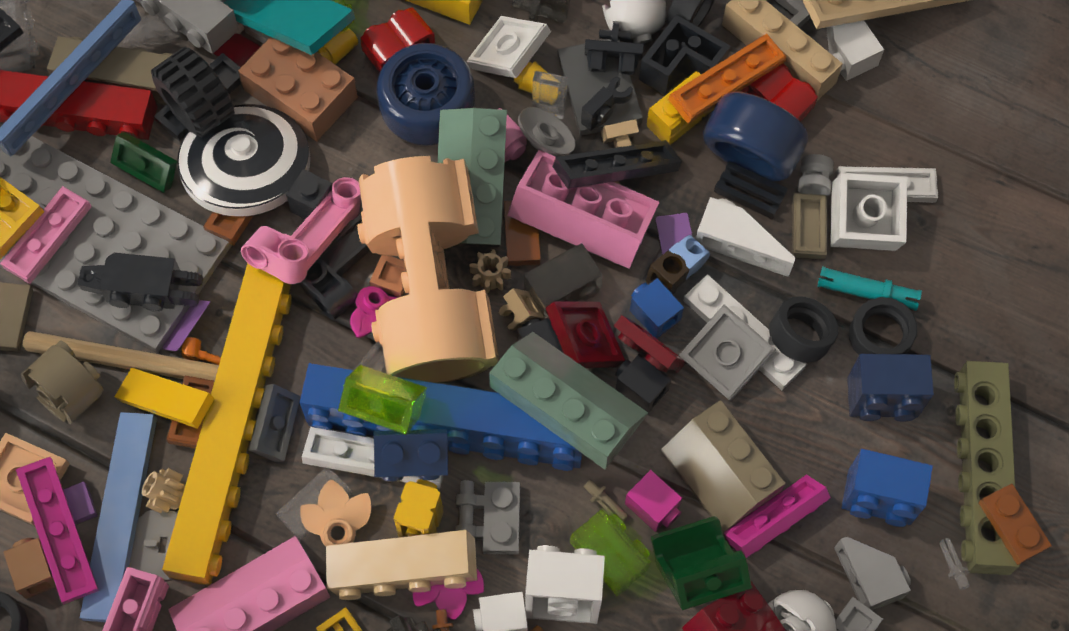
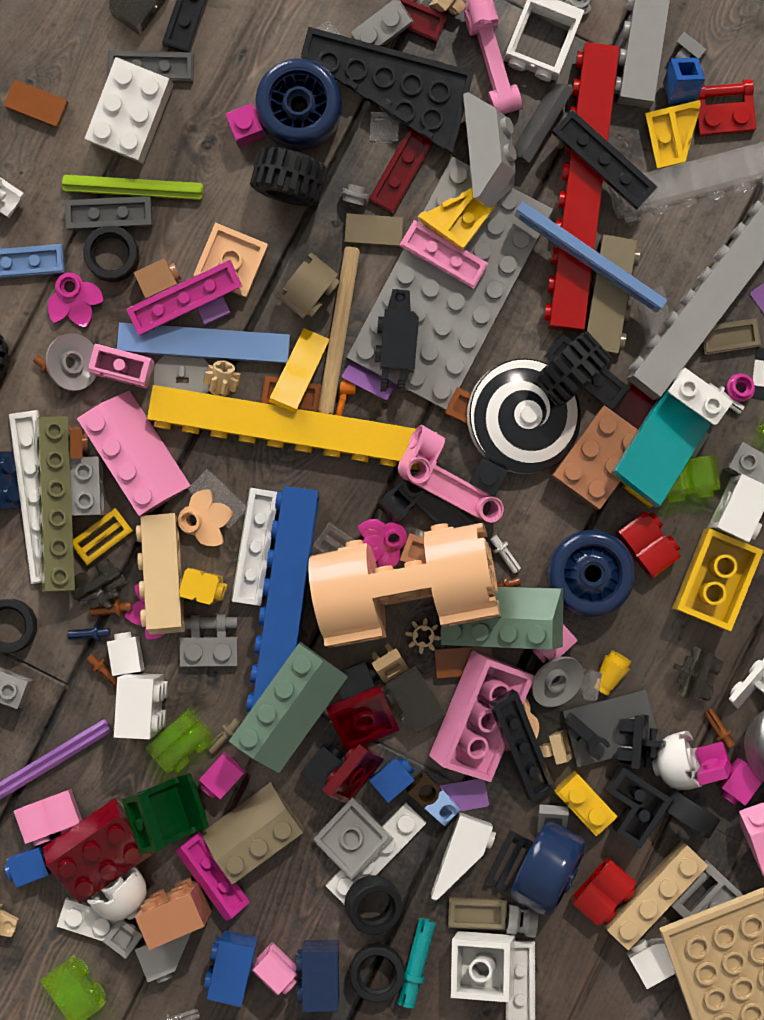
camera: 90 degrees right, 20 degrees up
(143, 161) = (519, 328): dark green plate -> none
(274, 423) = (282, 462): dark grey plate -> none
(382, 399) = (278, 555): clear neon green brick -> none
(410, 454) = (240, 578): dark blue bracket -> none
(508, 46) = (643, 645): white plate -> none
(695, 145) = (554, 814): none -> light grey plate
(726, 77) = (606, 845): orange tile -> none
(823, 547) = (173, 913): none -> nougat brick
(888, 432) = (275, 969): none -> bright pink brick

